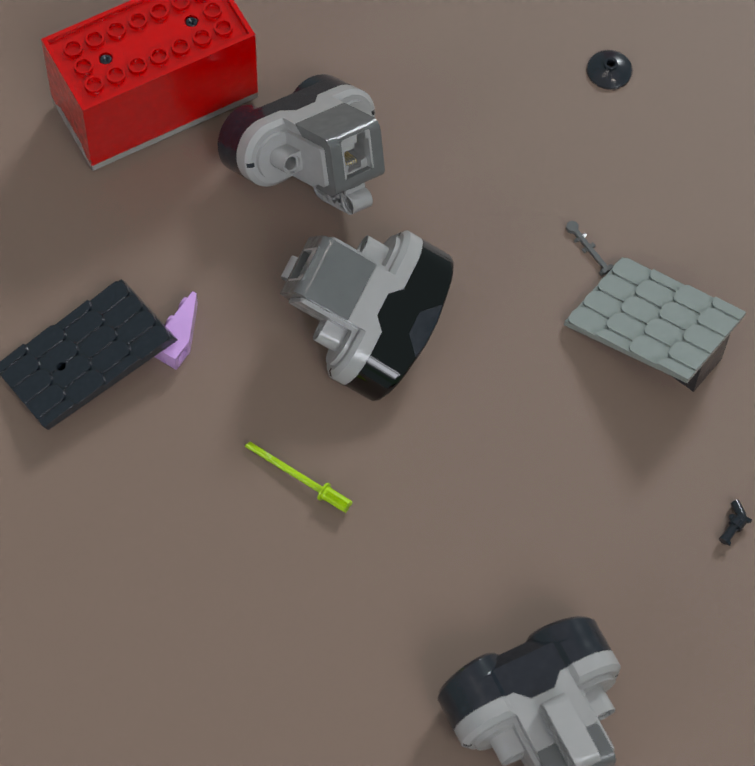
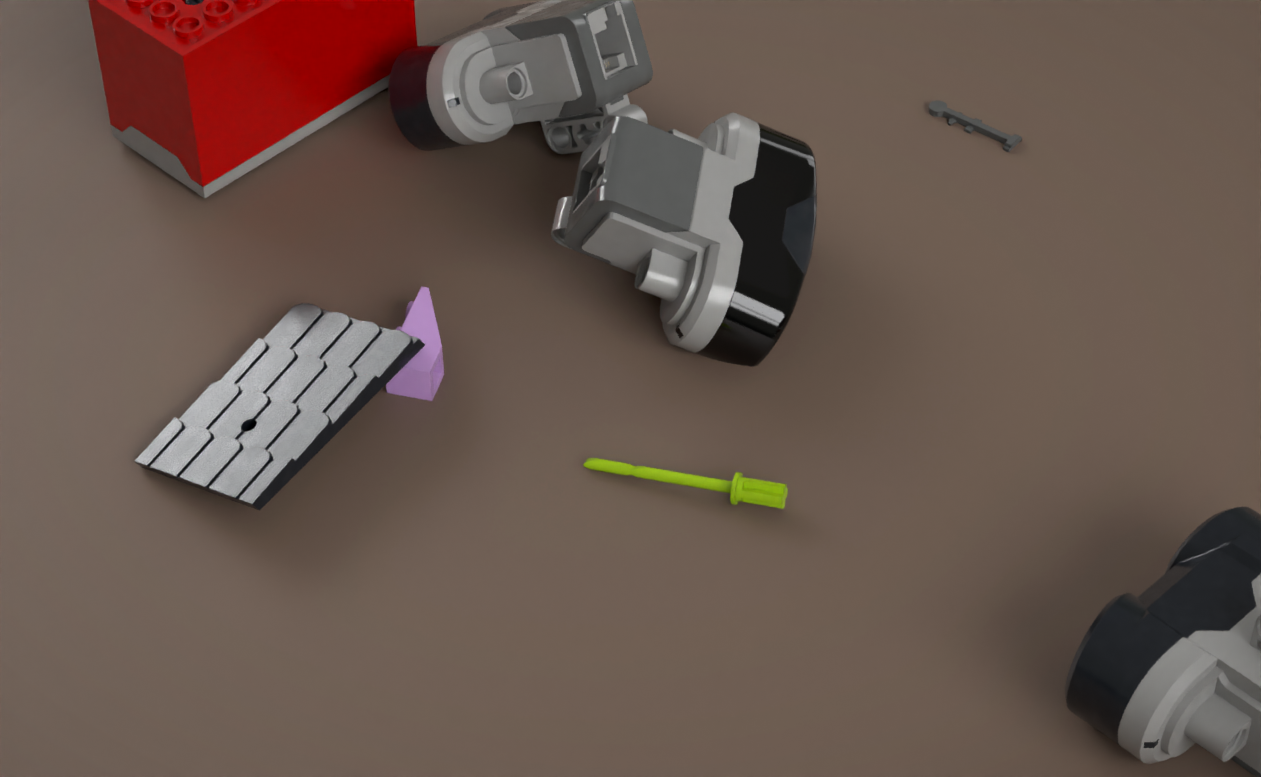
camera: 15 degrees left, 20 degrees down
(657, 321) = (1140, 169): light grey piece -> none

